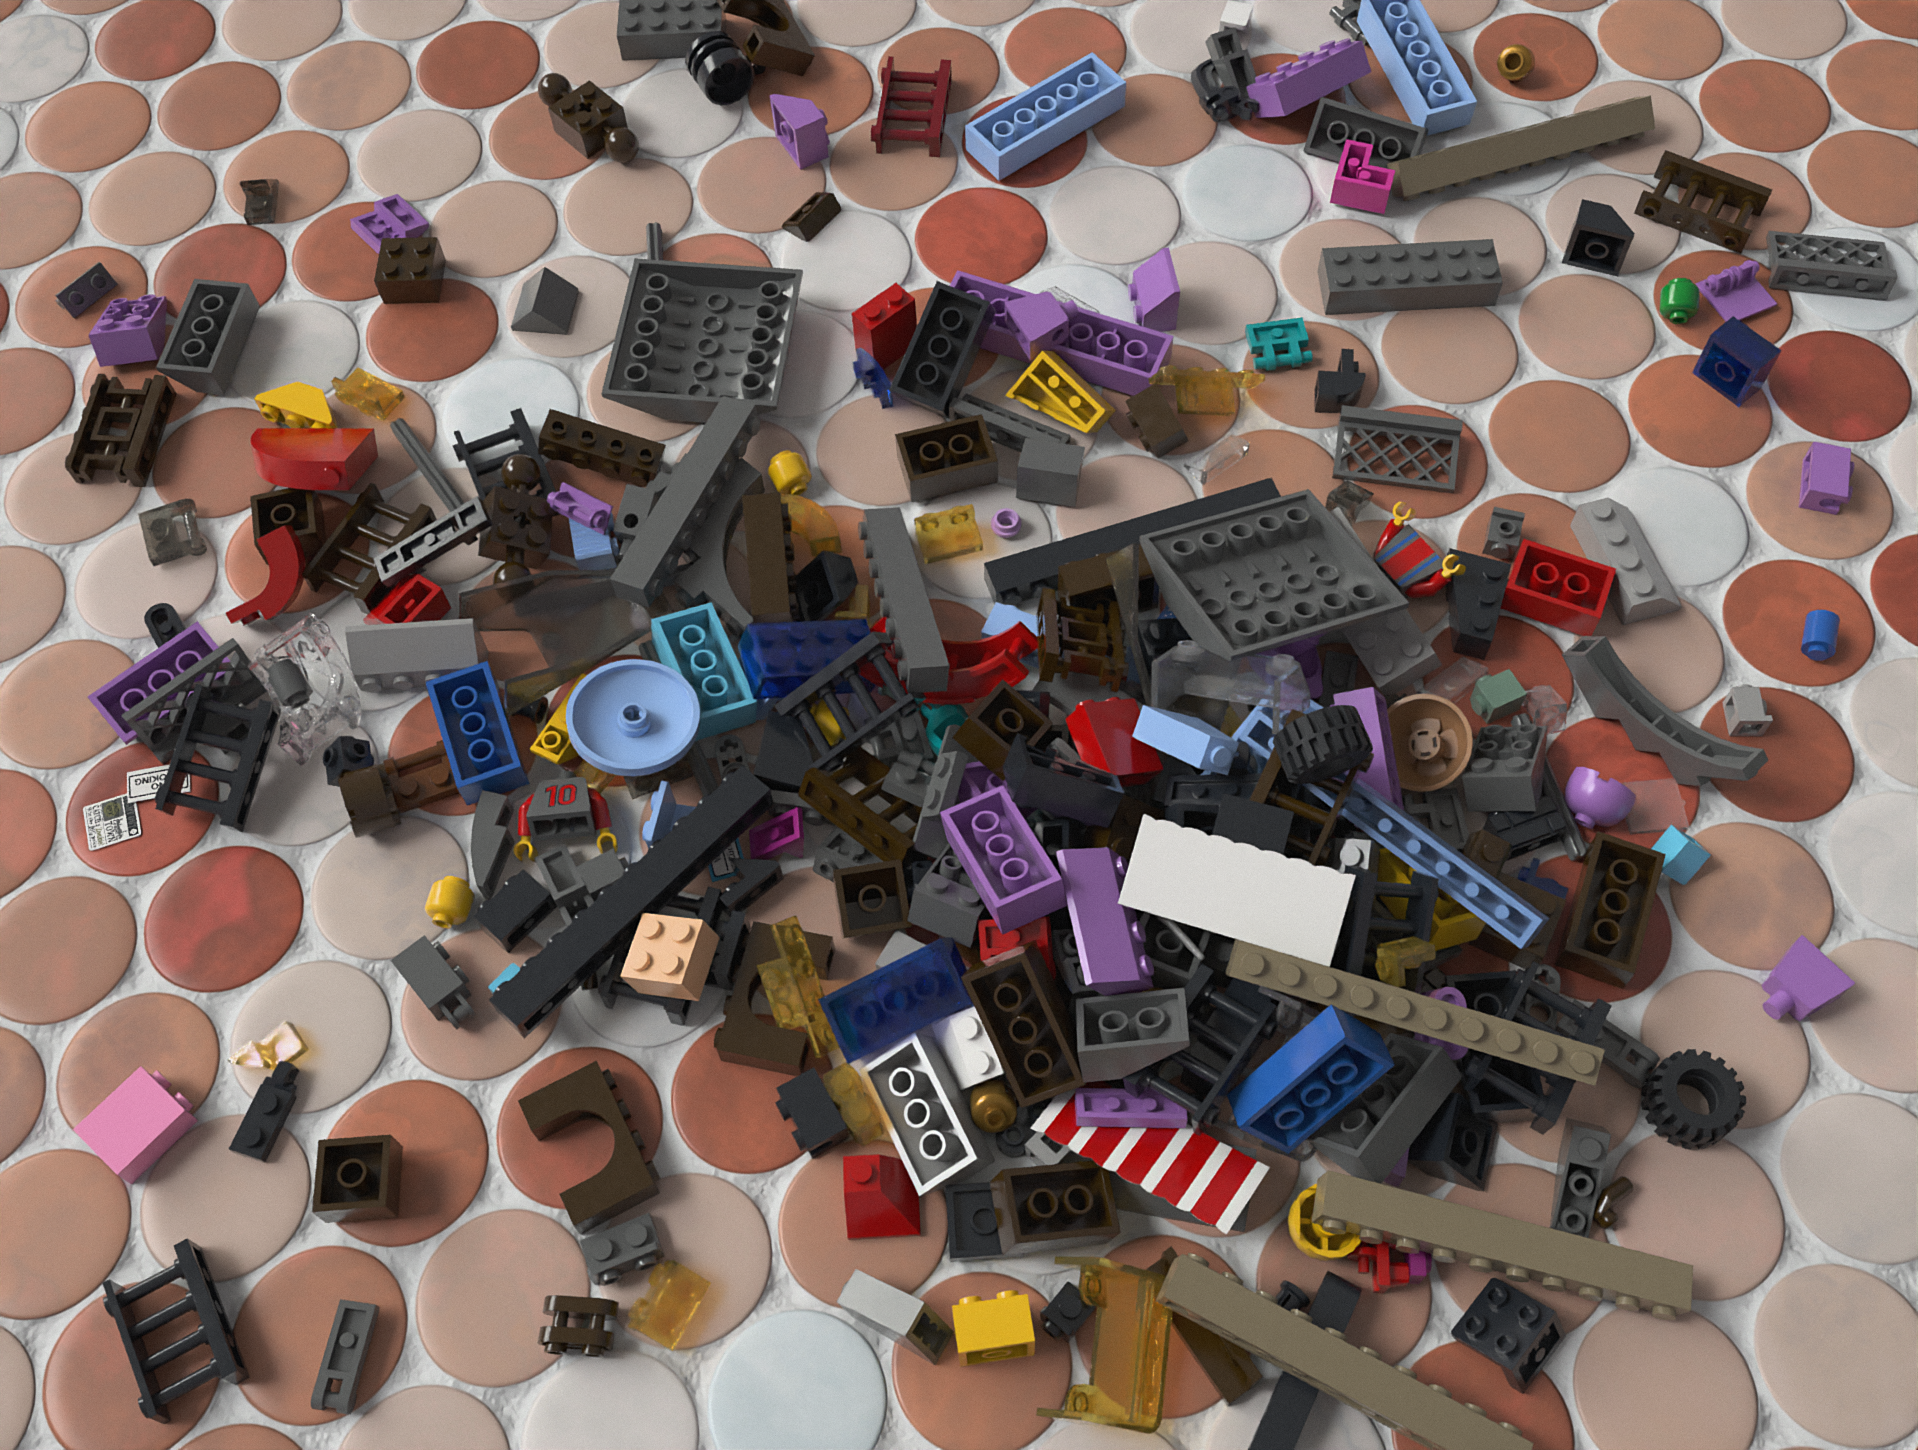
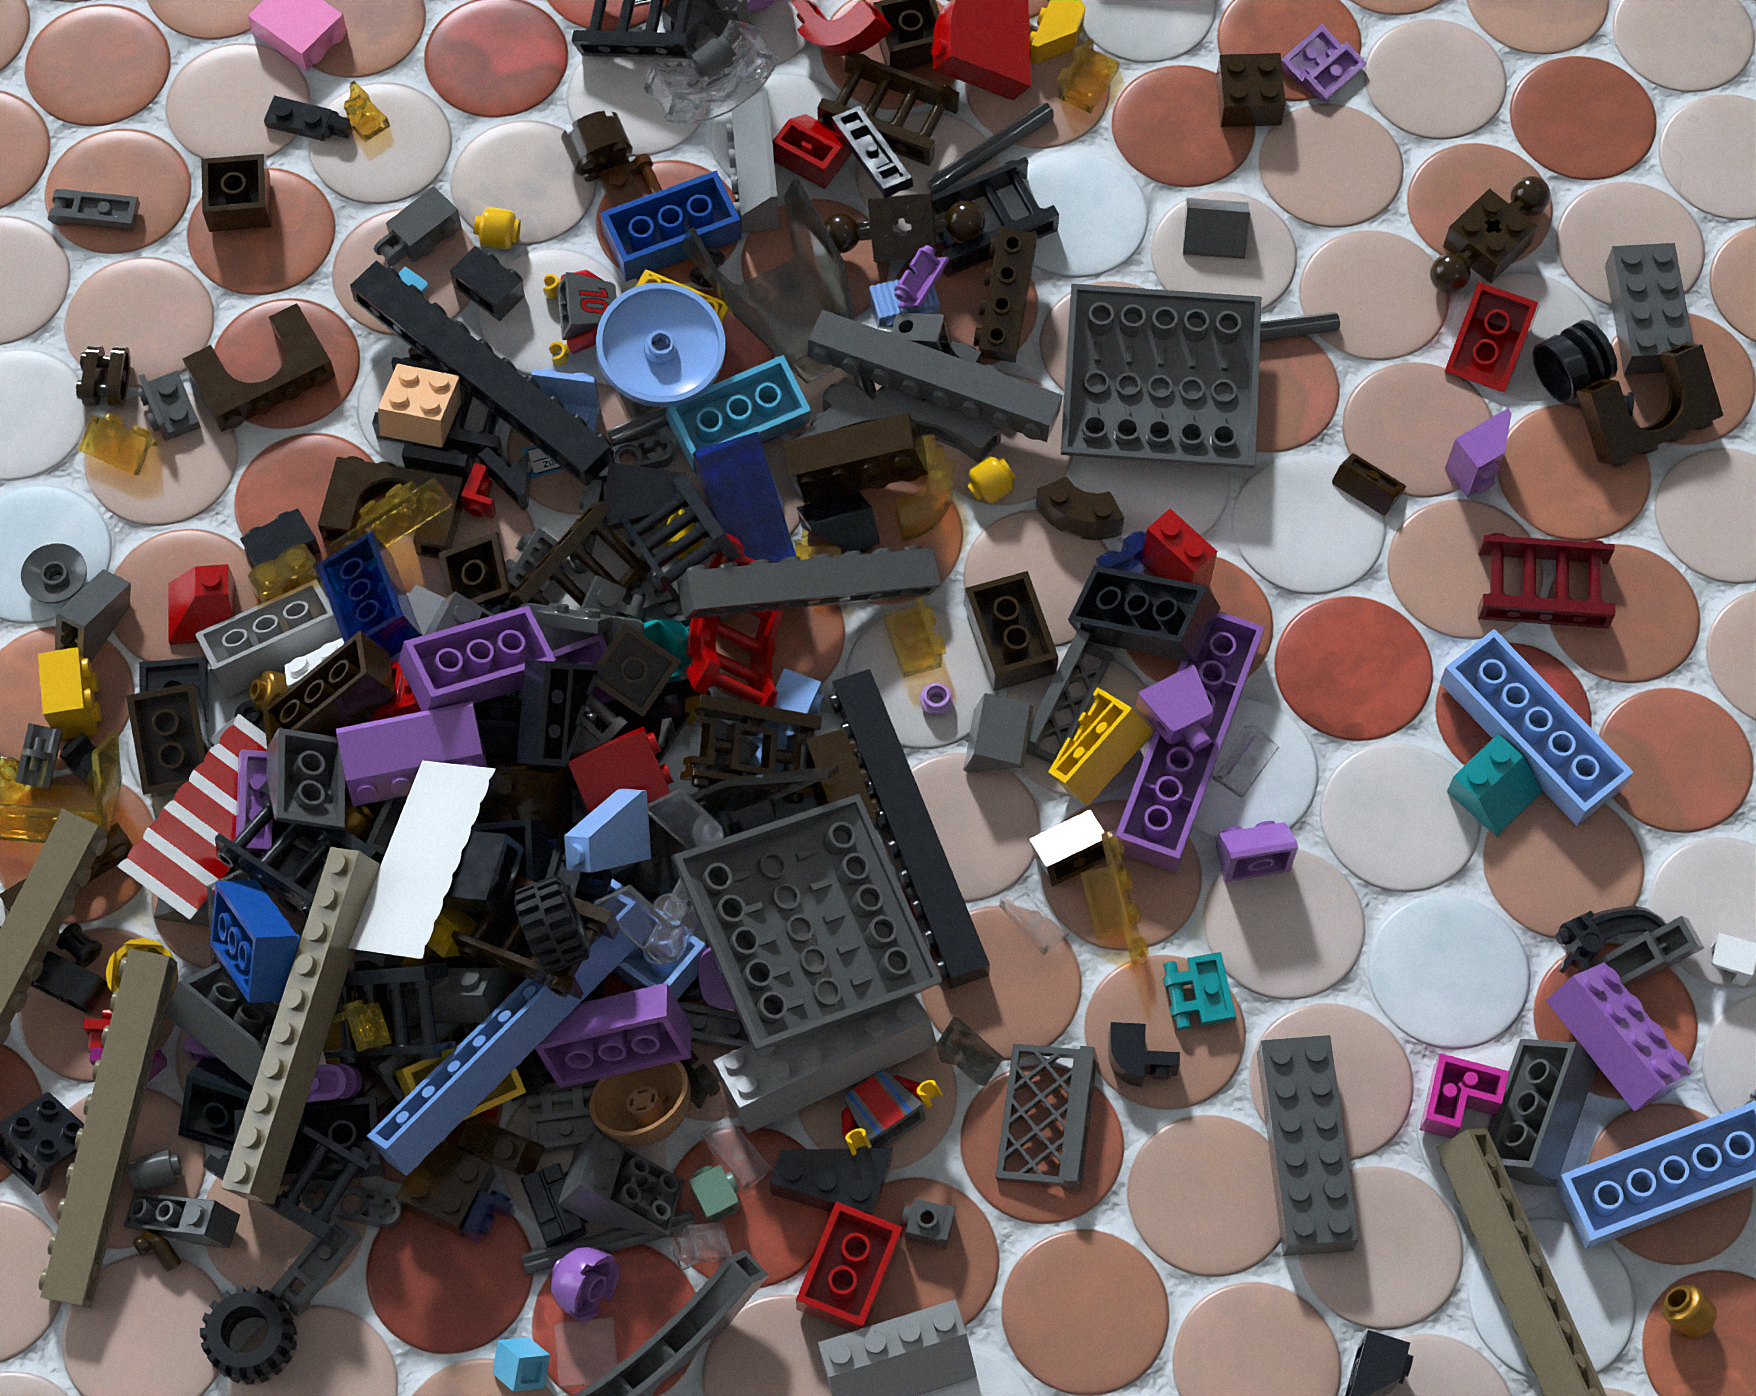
camera: 85 degrees right, 5 degrees up
(213, 1331) = (133, 107): black fence -> none
(345, 756) = (638, 114): black brick -> none
(490, 840) = (558, 253): dark grey slope -> none
(564, 882) = (513, 322): dark grey slope -> none
(602, 872) = (521, 350): dark grey brick -> none
(684, 123) = (1492, 337): none -> red slope
(762, 912) = (476, 493): none -> red bracket
(778, 835) = (556, 499): magenta slope -> none
(827, 408) = (1078, 511): none -> dark brown brick
(829, 1347) = (52, 561): none -> dark grey dish
(1068, 1360) = (39, 756): none -> dark grey hips
(1089, 150) = (1495, 785): none -> teal slope
(1530, 1203) = (154, 1170): none -> dark grey brick
(1610, 910) = (453, 1277): dark brown brick -> none

